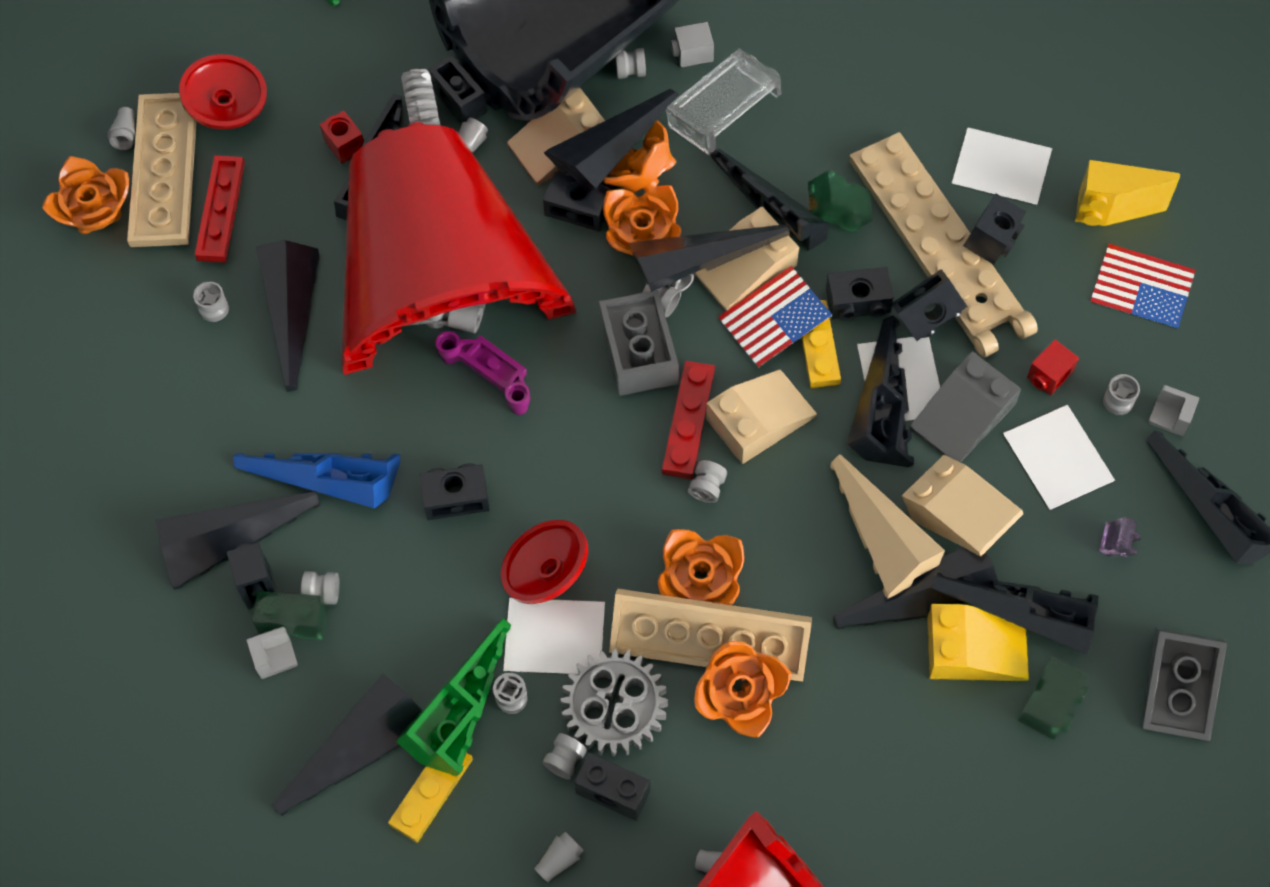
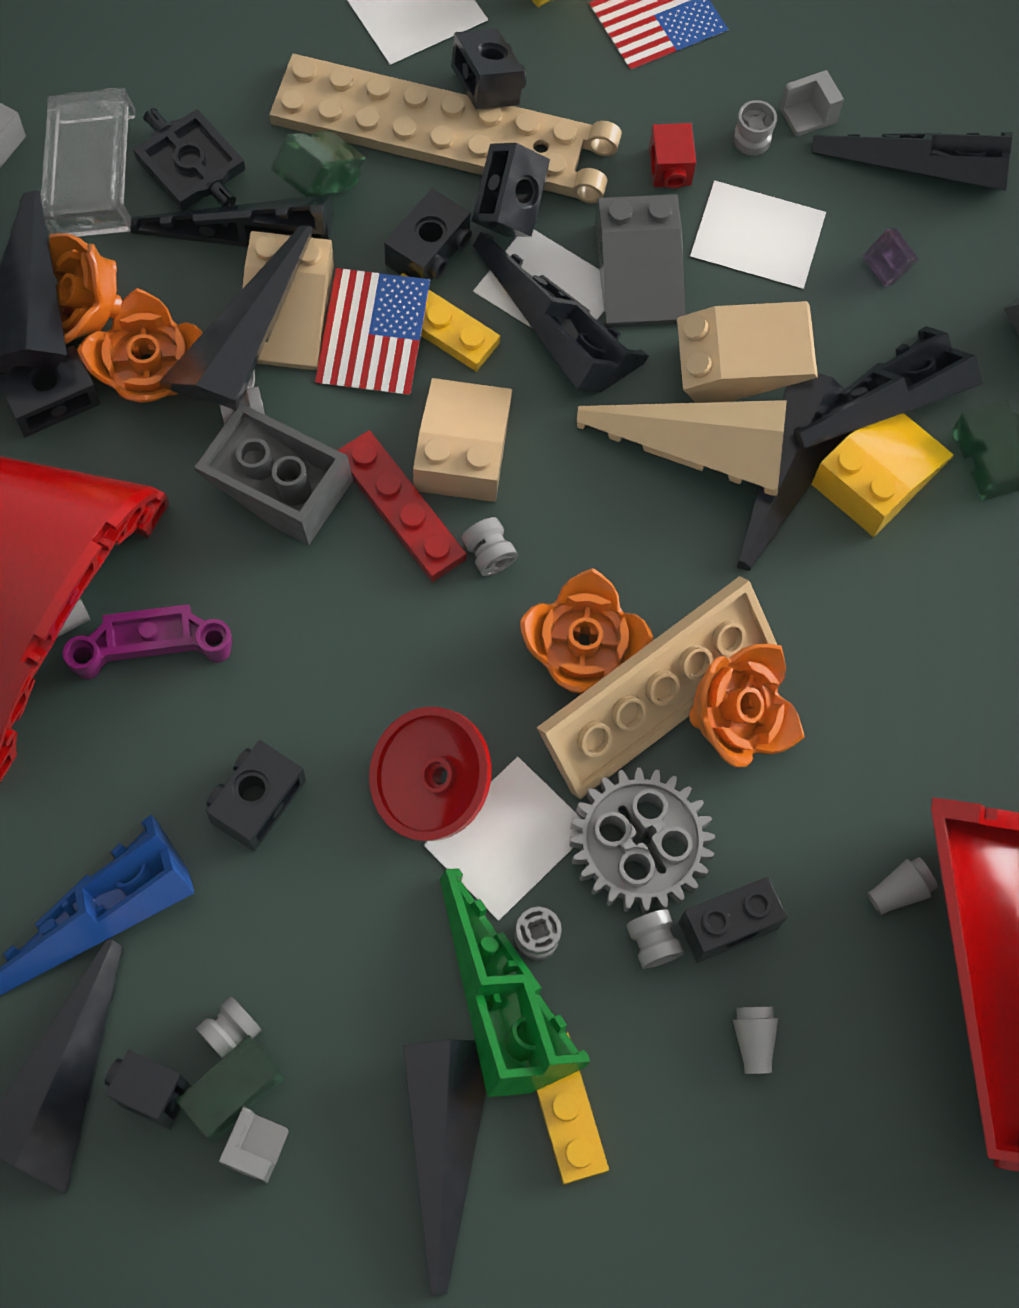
camera: 55 degrees left, 5 degrees up
(780, 143) = (189, 159): none -> black plate

